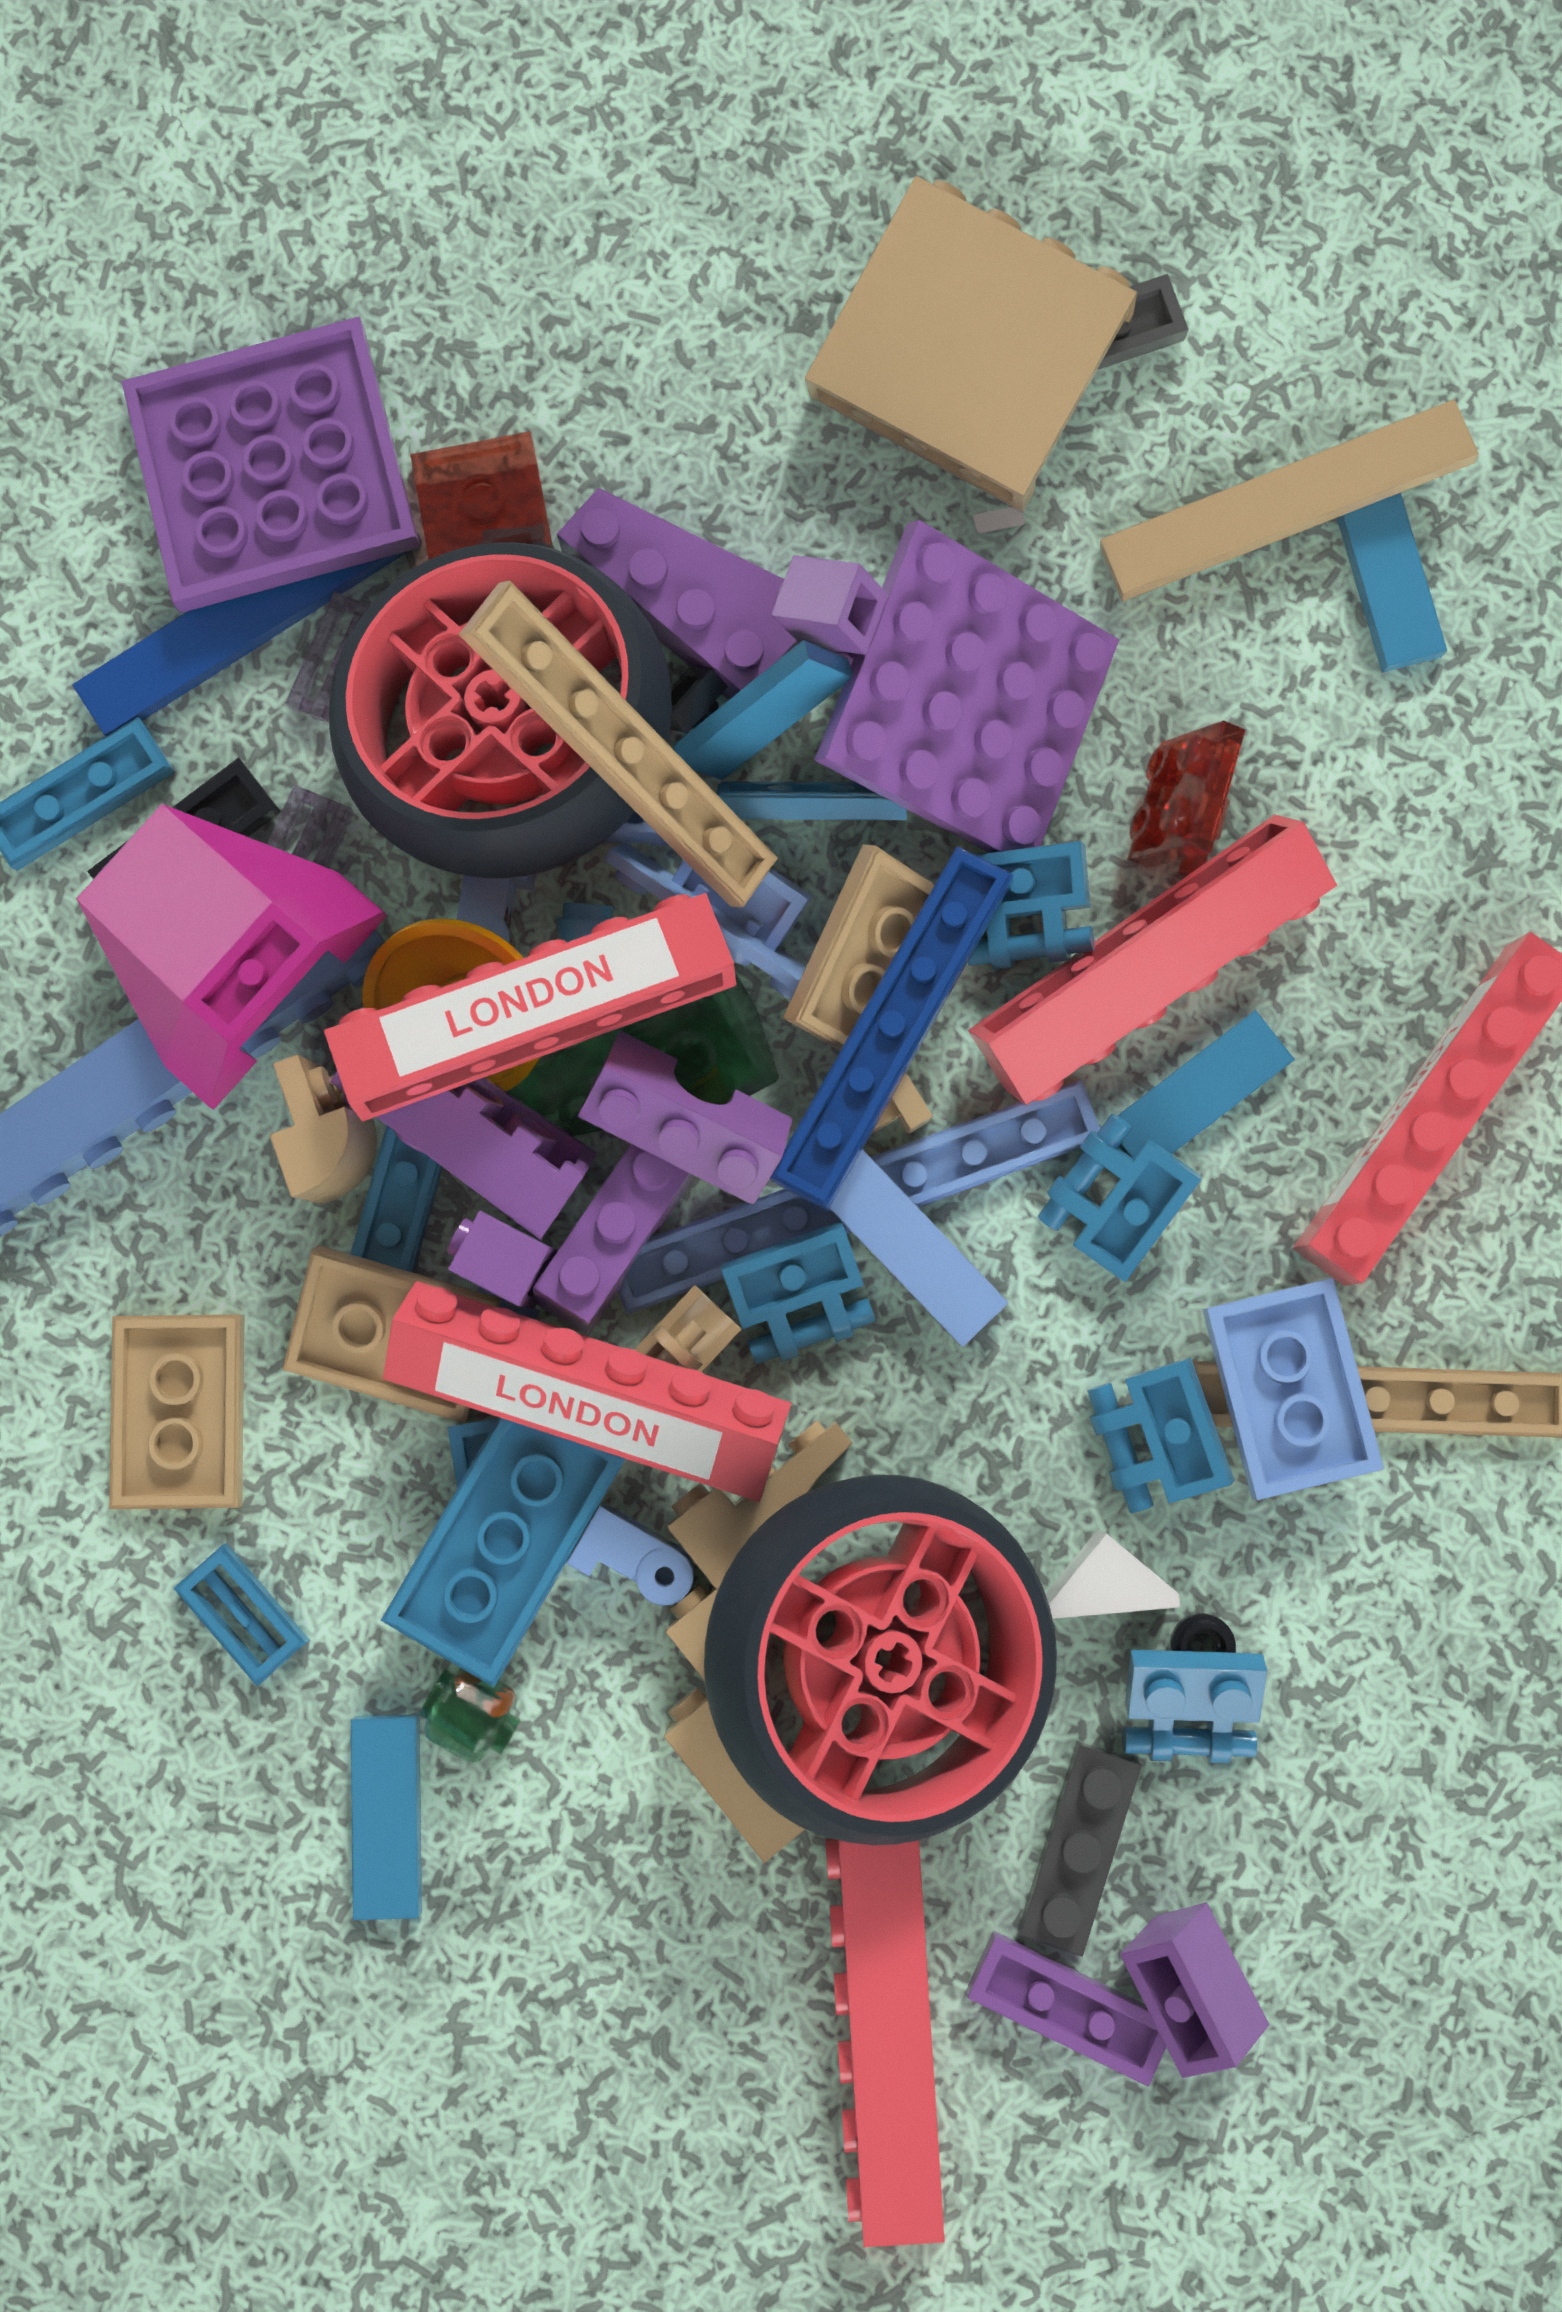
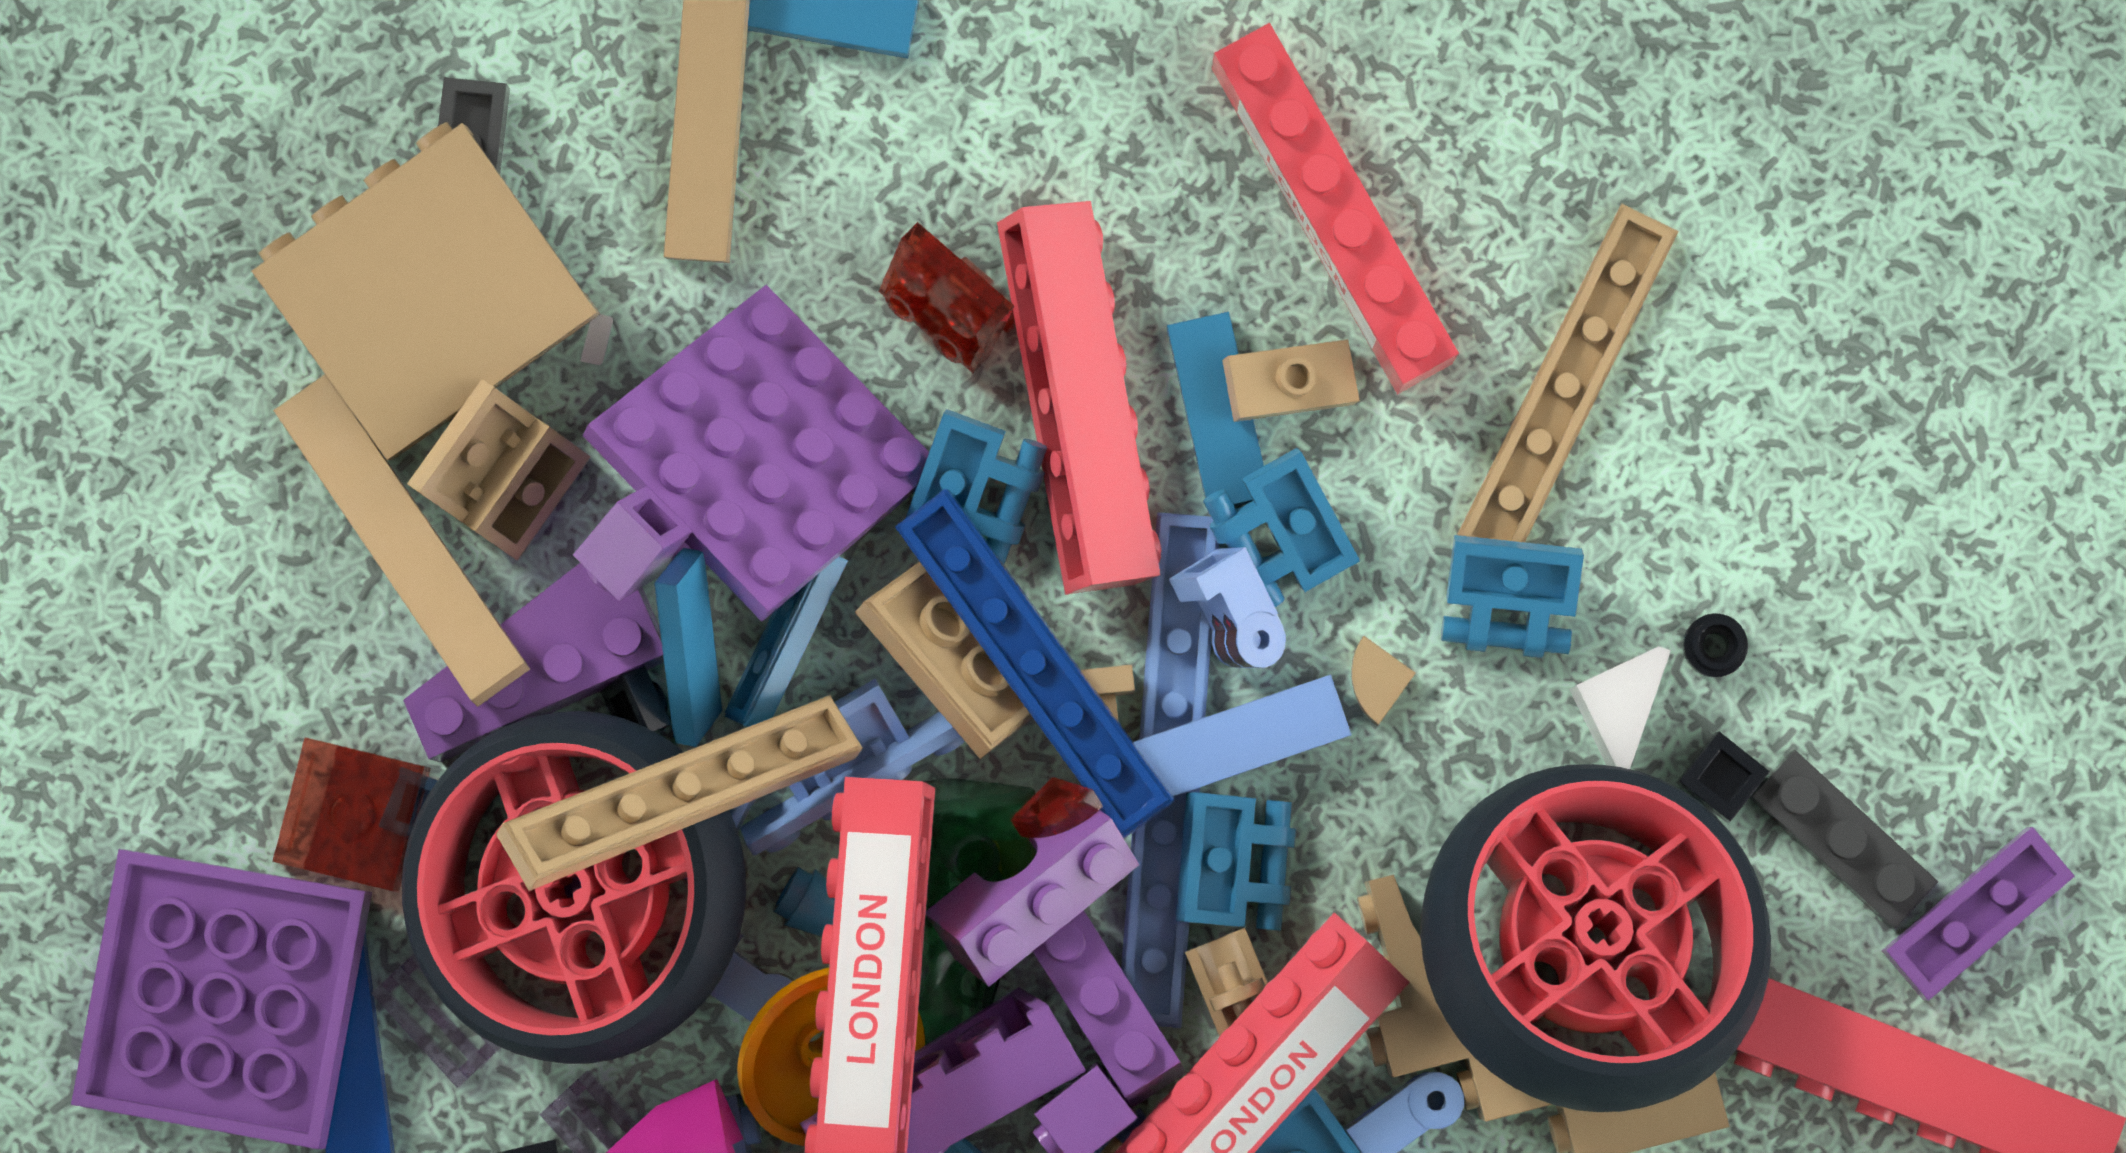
camera: 65 degrees left, 0 degrees up
(734, 429) = (402, 541): none -> tan tile
(768, 1105) = (1056, 809): none -> clear red tile
(842, 479) = (499, 469): none -> tan brick
(1024, 1348) = (1377, 679): none -> tan tile
(1029, 1188) = (1236, 606): none -> light blue leg
(1085, 1708) = (1723, 776): none -> black plate
(1193, 1688) = (1747, 672): dark azure plate -> none
(1195, 1990) = (2008, 795): medium lavender brick -> none
(1259, 1144) = (1290, 380): none -> tan plate
(1293, 1389) = (1523, 458): light blue plate -> none

